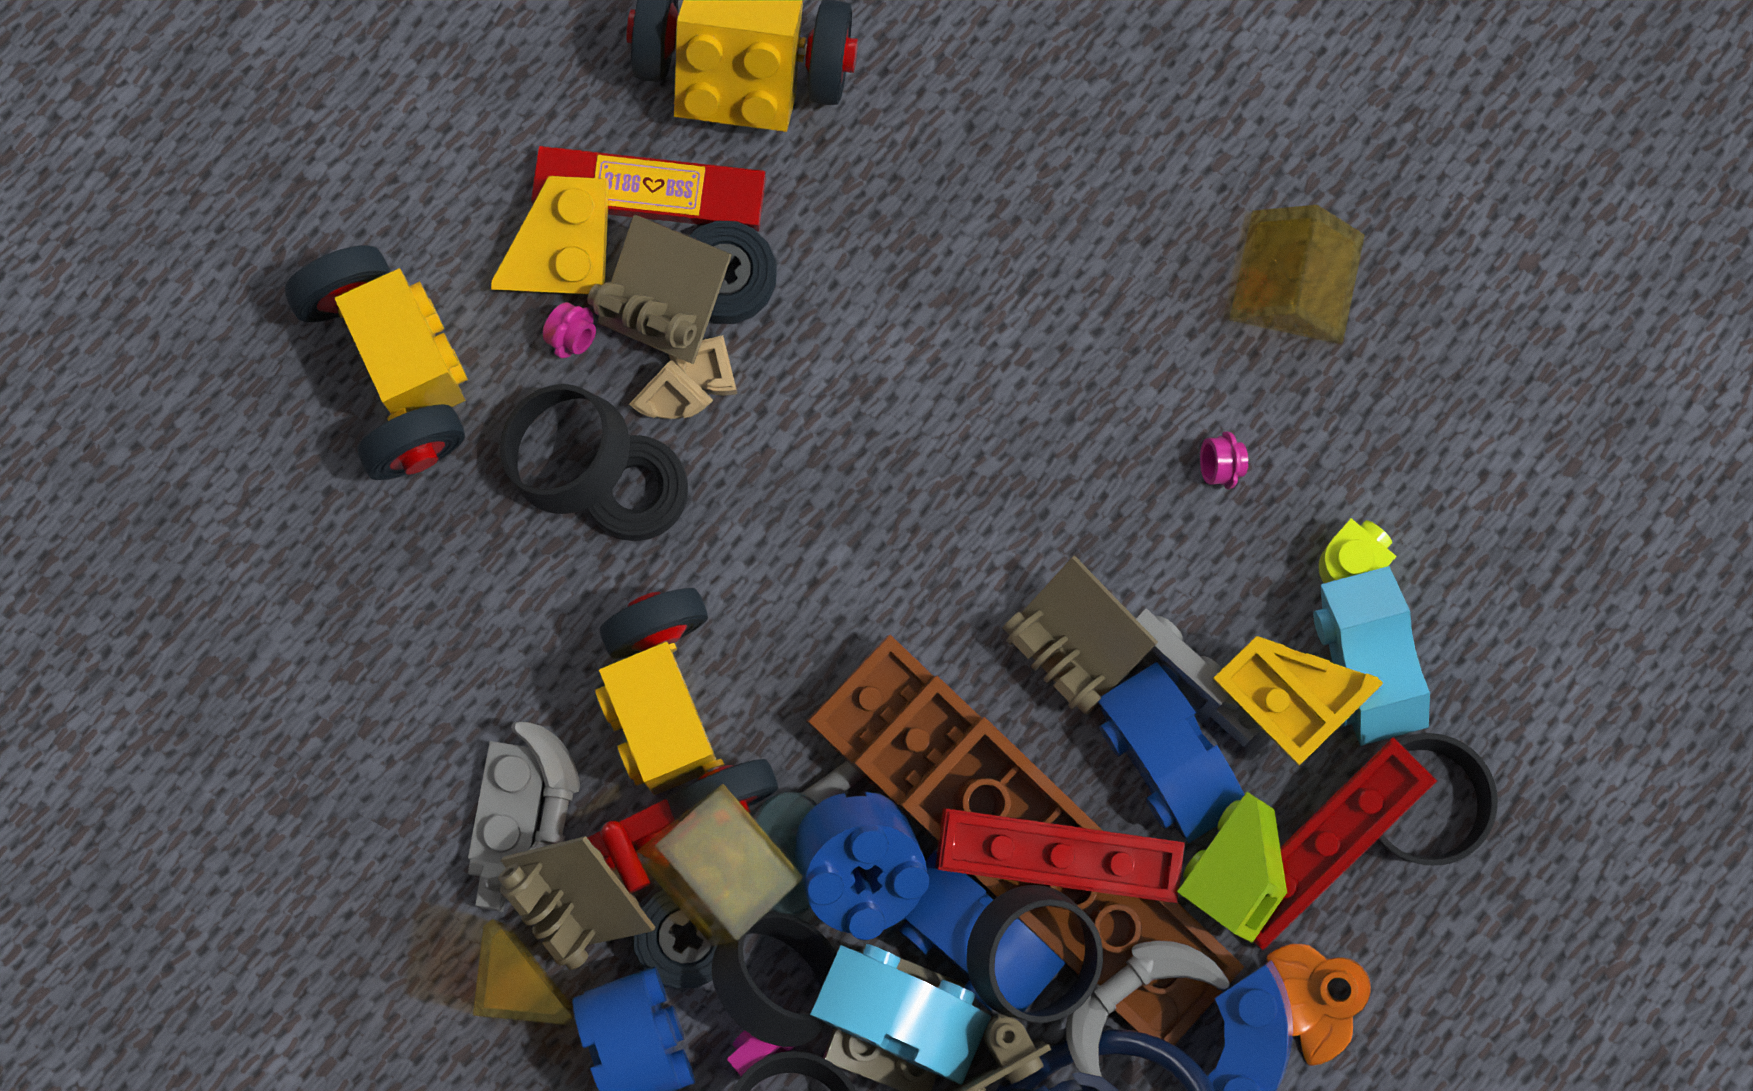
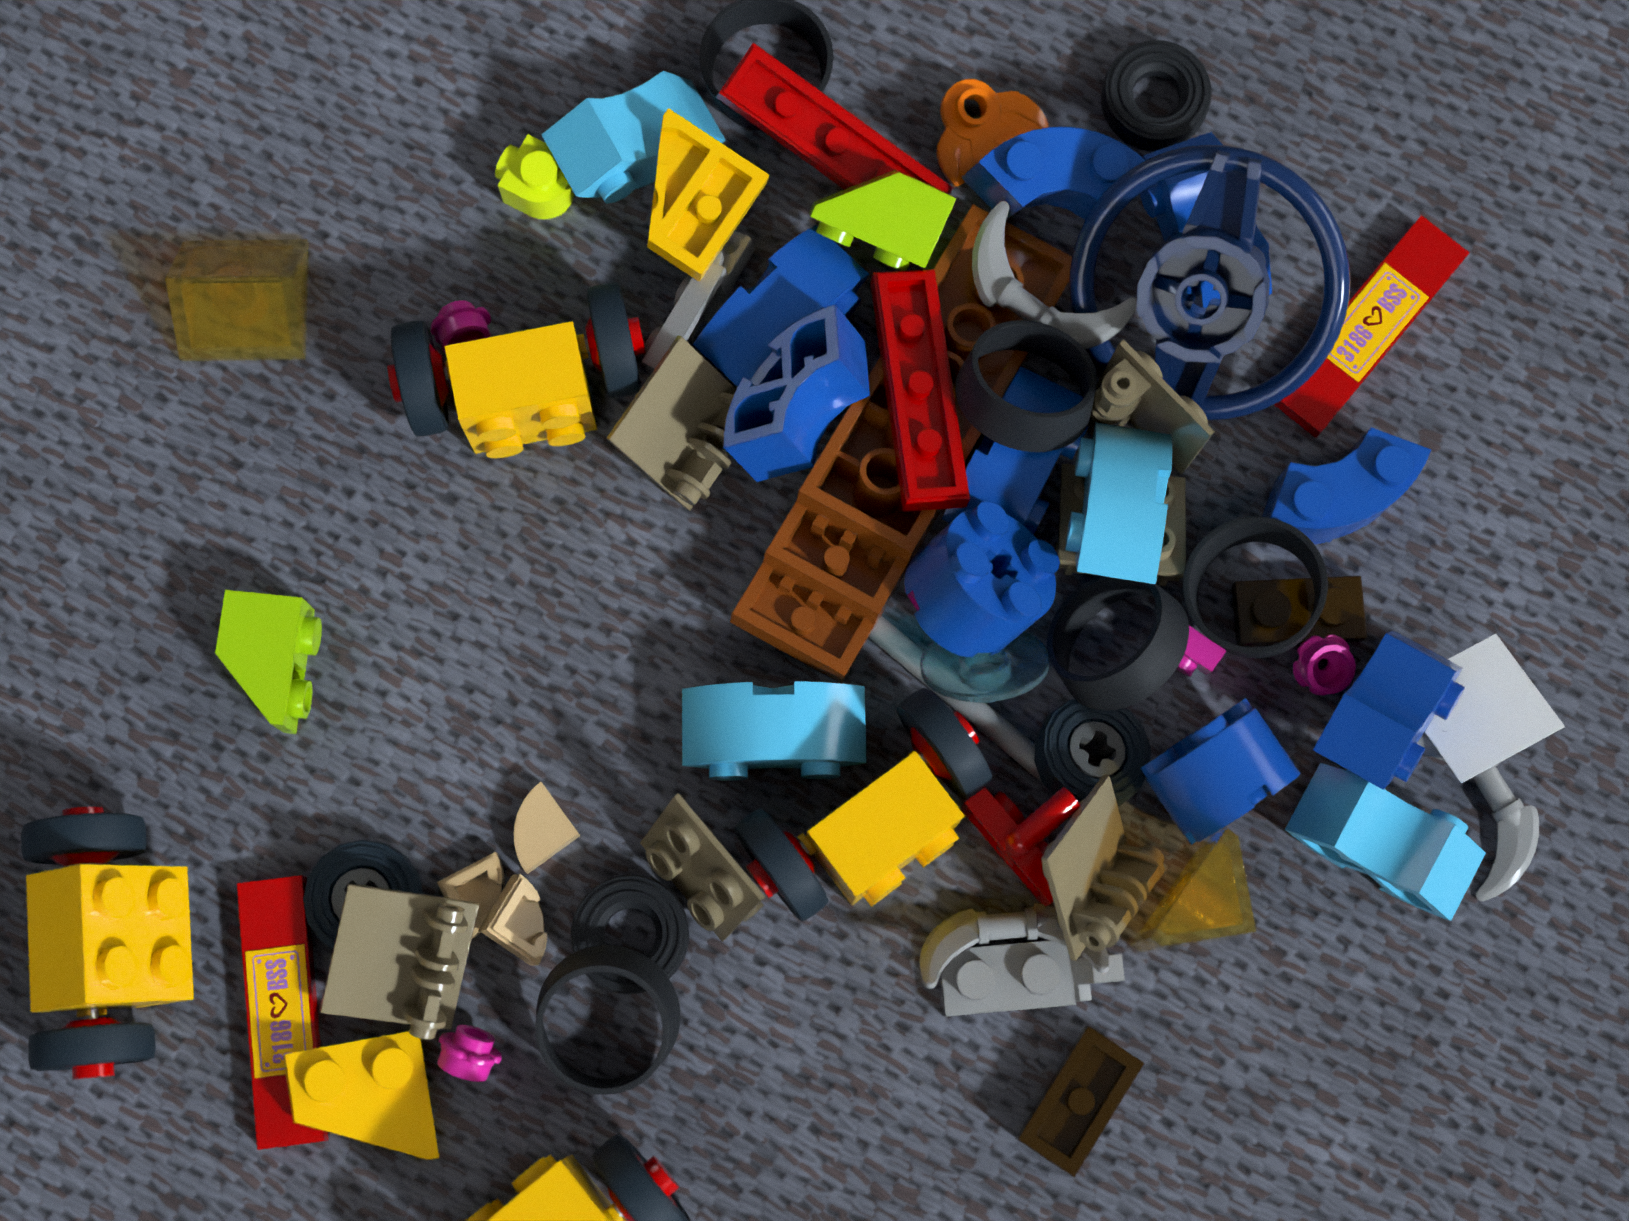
camera: 110 degrees left, 0 degrees up
(384, 839) = (1080, 1101): none -> dark brown plate
(692, 540) = (702, 869): none -> dark tan hinge
(719, 867) = (1029, 717): clear yellow slope -> none
(747, 433) = (540, 829): none -> tan tile
(779, 650) = (780, 727): none -> medium azure brick
(957, 230) = (266, 650): none -> lime slope
(1077, 737) = (795, 394): none -> blue brick
(1145, 496) = (519, 382): none -> yellow brick

